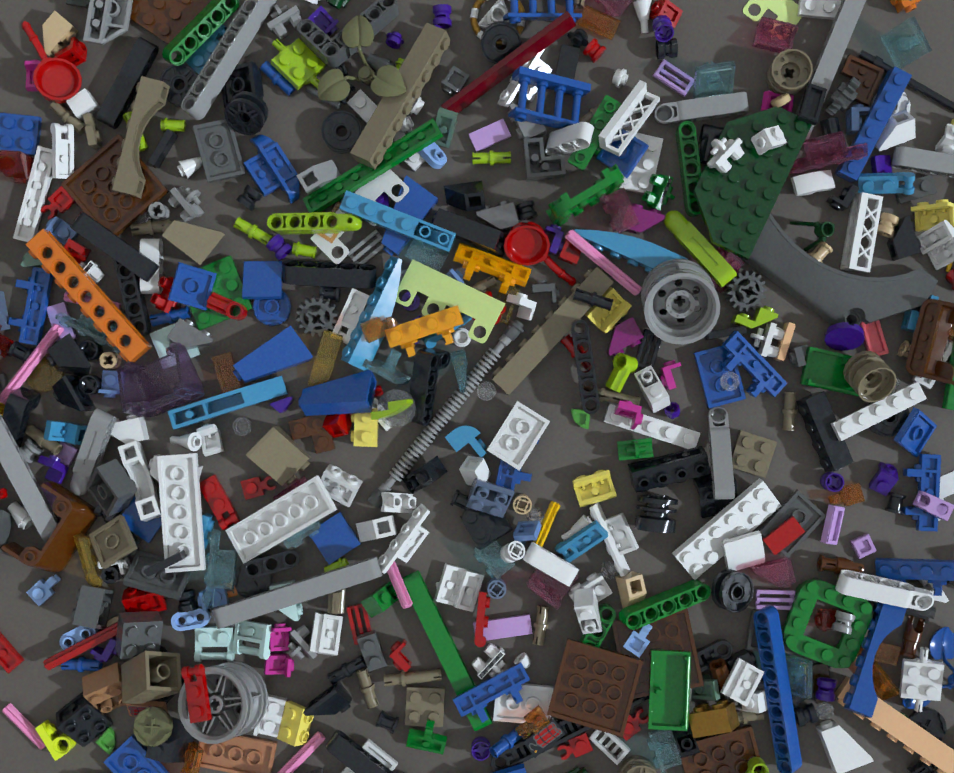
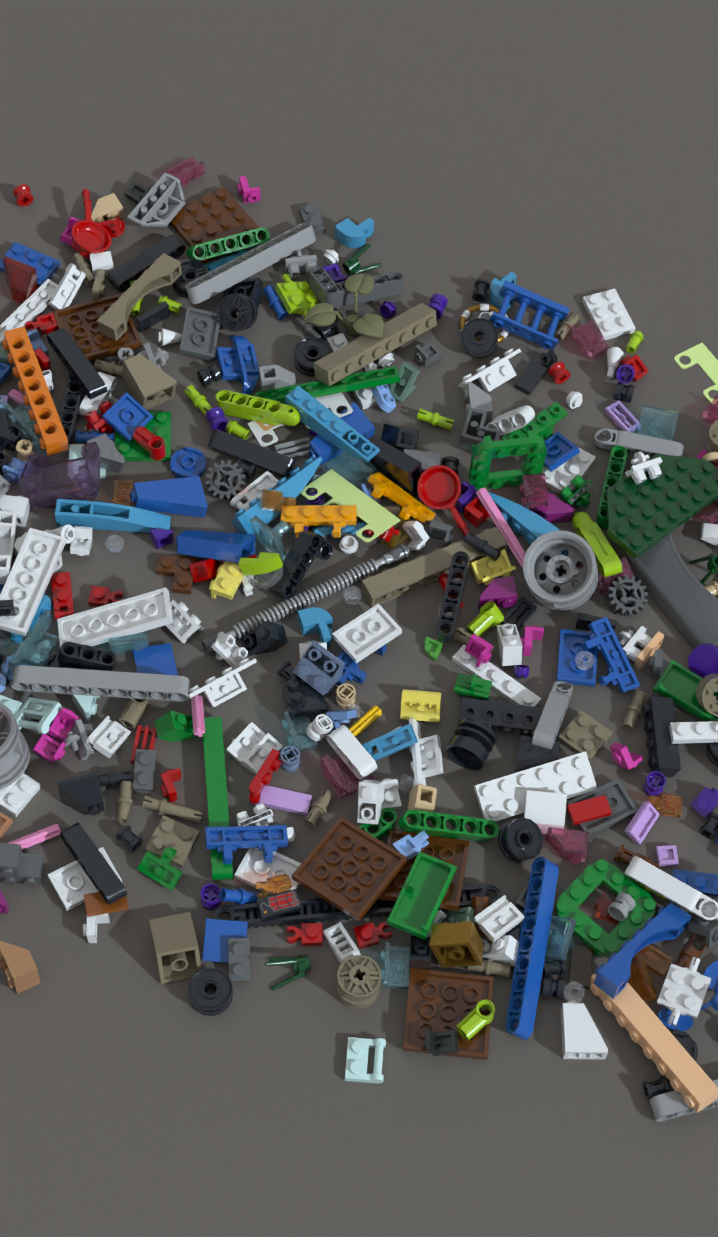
camera: 20 degrees right, 30 degrees down
(262, 280) = (189, 438): blue tile -> none
(279, 456) = (136, 569): dark tan slope -> none
(294, 724) = (40, 808): light yellow bracket -> none
(325, 358) = (219, 513): clear yellow tile -> none
(376, 528) = (200, 665): white slope -> none
(459, 363) = (338, 562): clear light blue slope -> none
(489, 135) = (441, 403): lavender tile -> none
(510, 63) = (482, 352): dark red tile -> none
(547, 81) = (508, 375): blue fence -> none
(599, 22) = (571, 354): clear orange plate -> none
(630, 106) = (566, 425): white fence -> none
(758, 599) = (561, 864): lavender tile -> none
(761, 316) = (633, 623): lime slope -> none
(768, 139) = (688, 471): white bracket -> none
(801, 465) = (623, 758): none -> dark pink bracket
(826, 689) = (582, 965): dark purple wheel -> none

